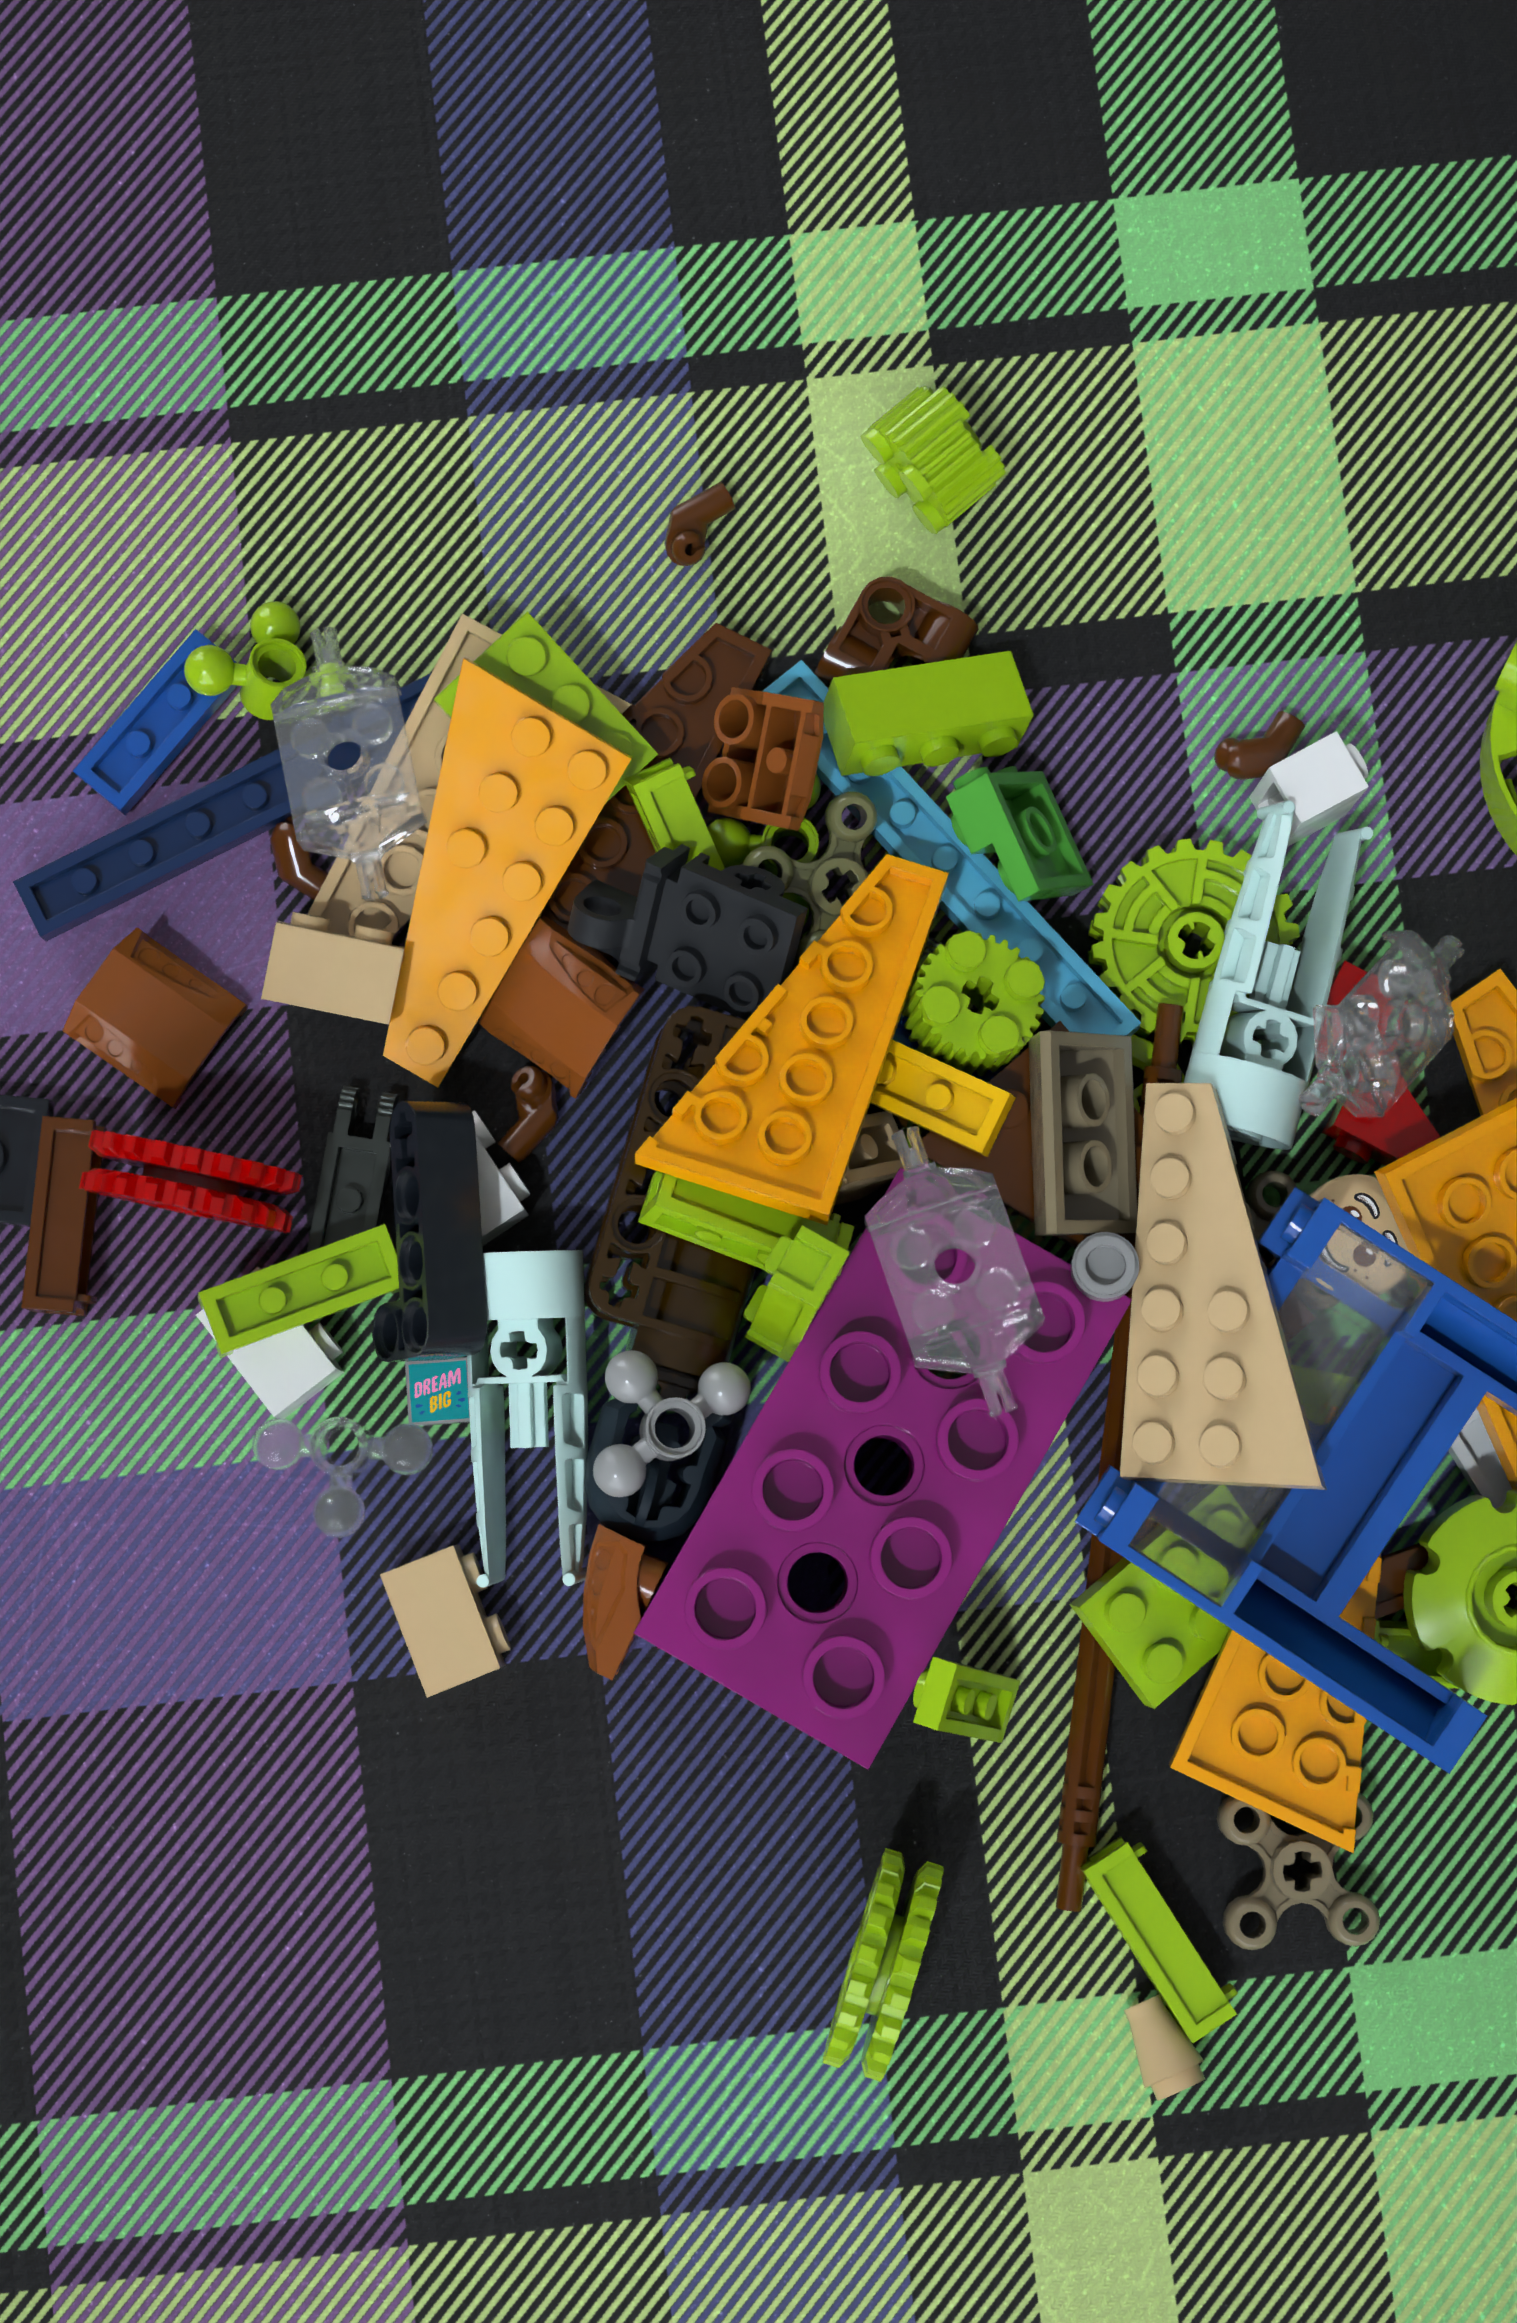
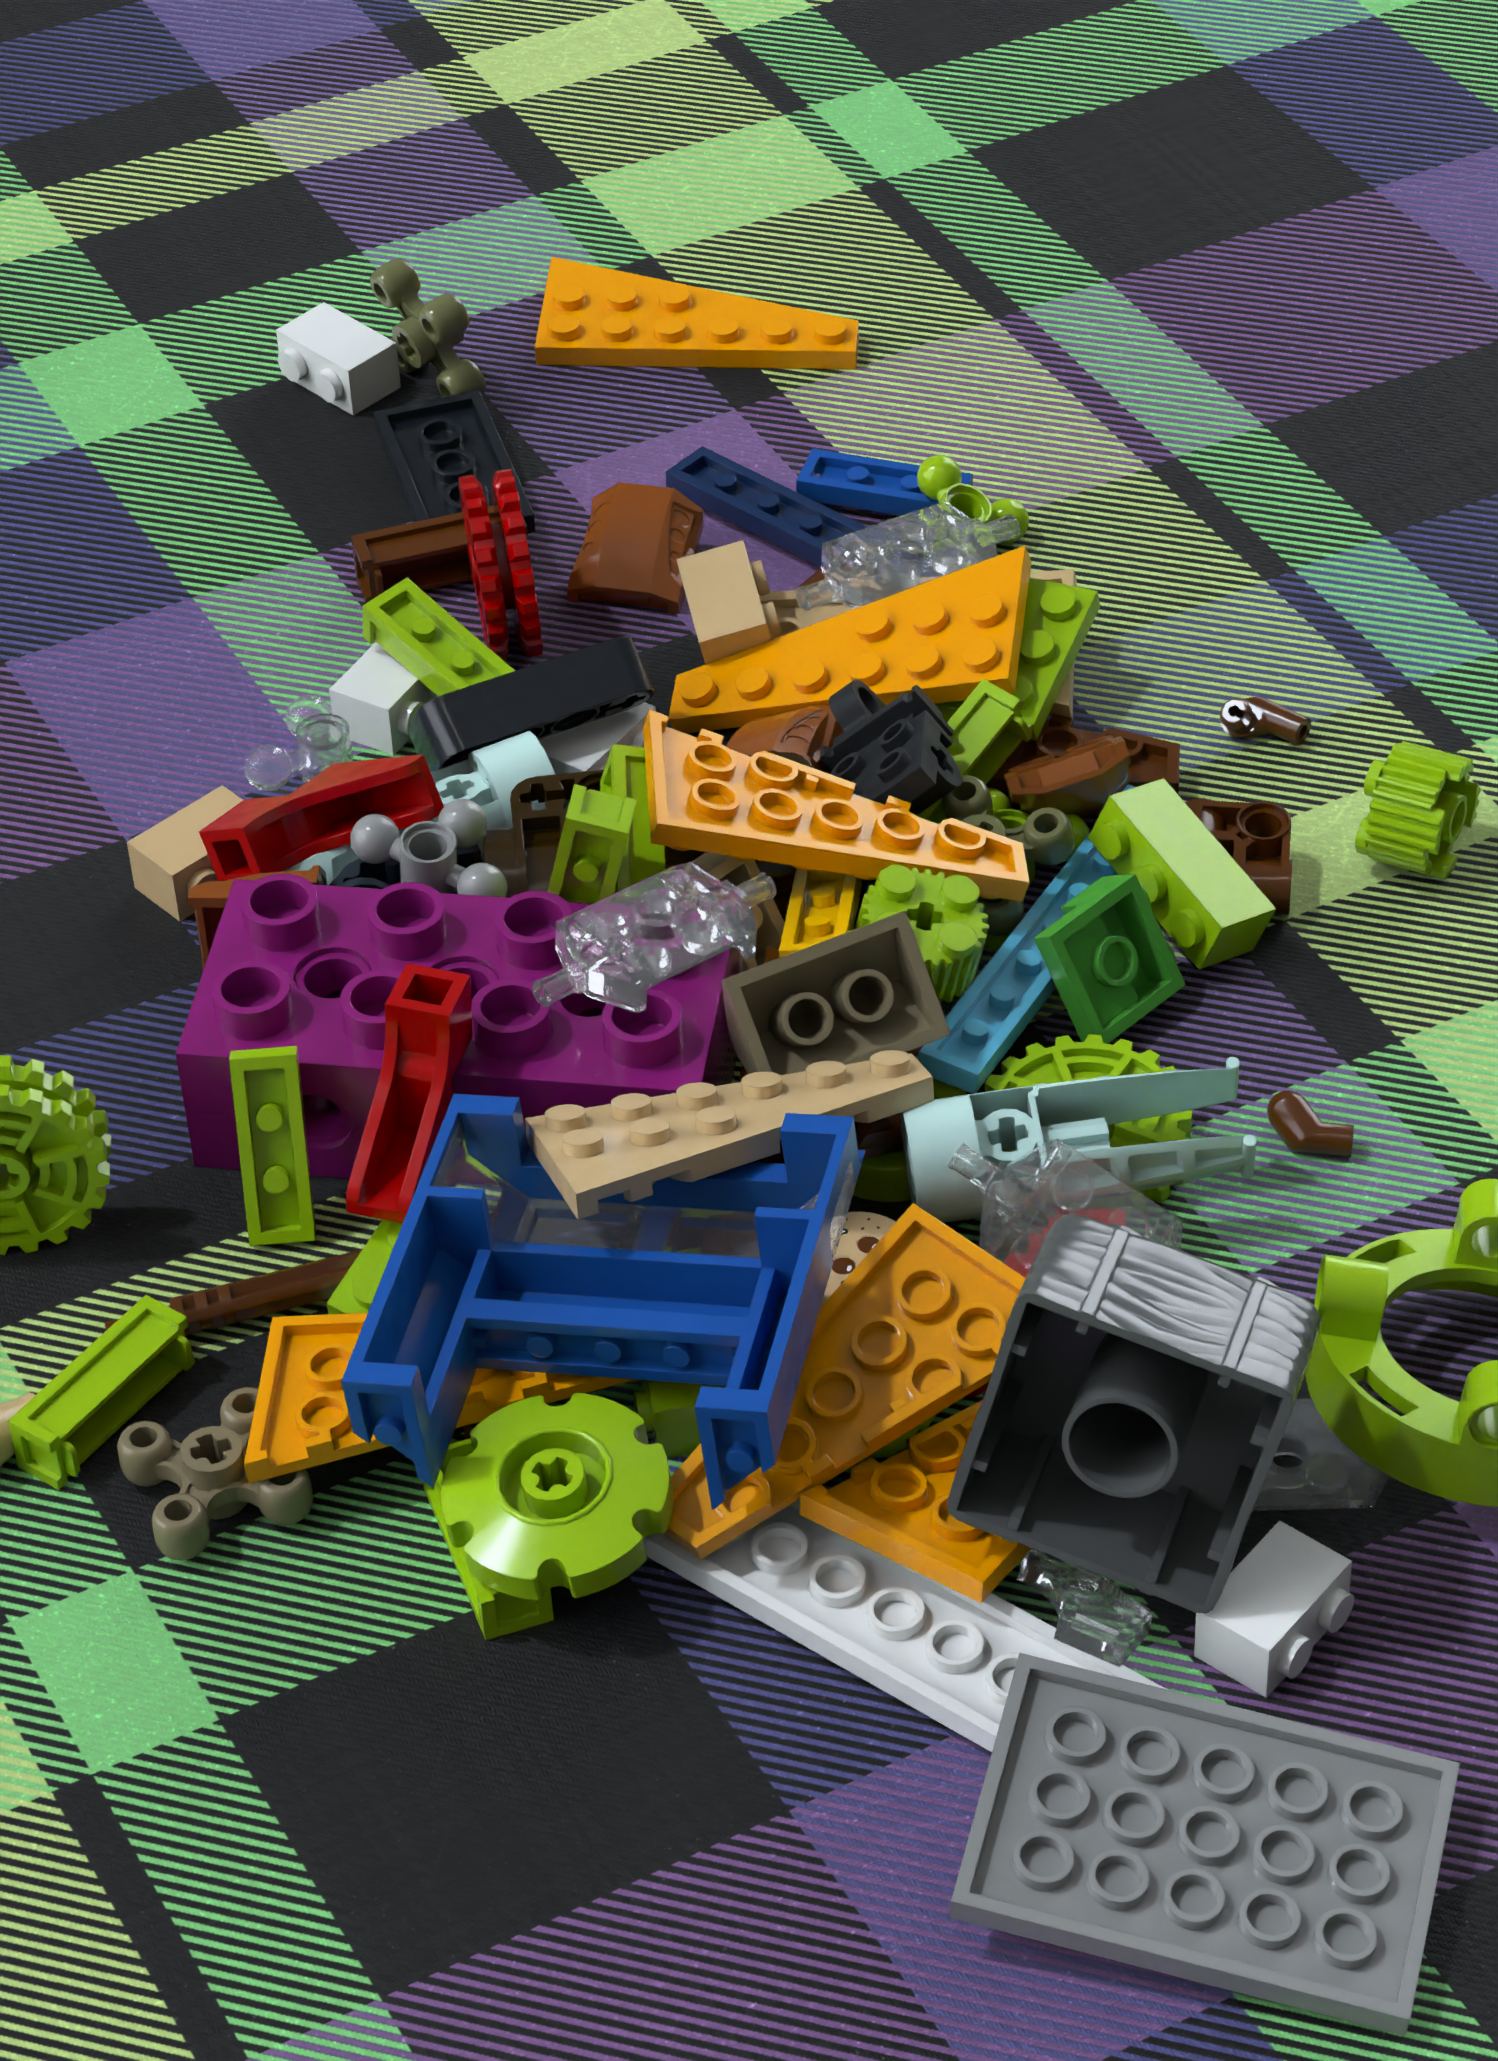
camera: 70 degrees right, 40 degrees down
(524, 1482) = (319, 815): none -> red arch
(1041, 1572) = (424, 1042): none -> red arch
(1104, 1266) = (717, 1054): light grey tile -> none
(1319, 780) = (1292, 1133): white brick -> none

